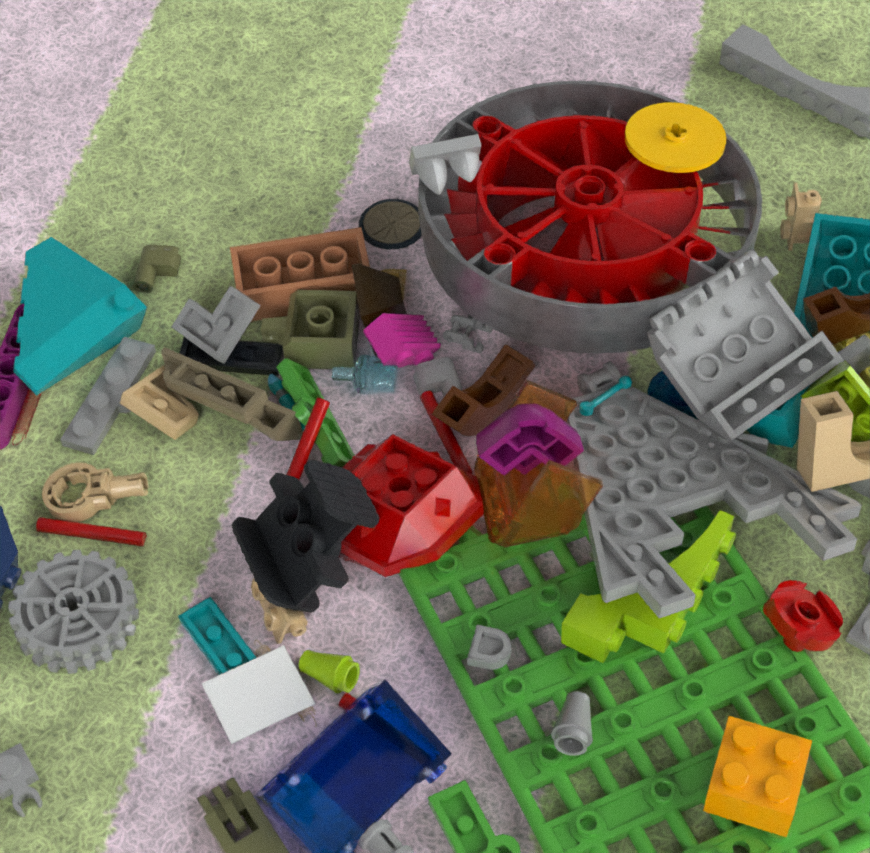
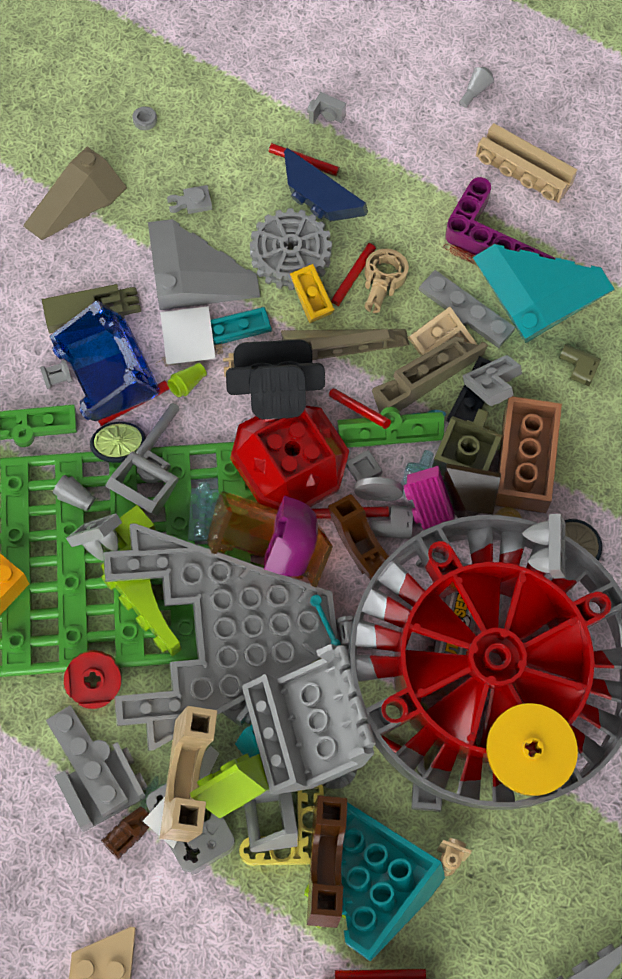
camera: 105 degrees right, 15 degrees up
(142, 736) = (193, 272): none -> light grey slope
(146, 554) = (312, 293): none -> yellow slope
(203, 515) = (349, 341): none -> dark tan wedge
(376, 430) = (363, 466): none -> light grey tile
(408, 397) = (378, 489): none -> light grey piece
(432, 673) = (158, 429): none -> light grey bar
(464, 717) = (116, 441): none -> yellowish green wheel
(530, 562) = (201, 511): none -> clear light blue hinge
(549, 619) = (153, 506): none -> light grey tile
(624, 658) = (95, 534): none -> light grey tile

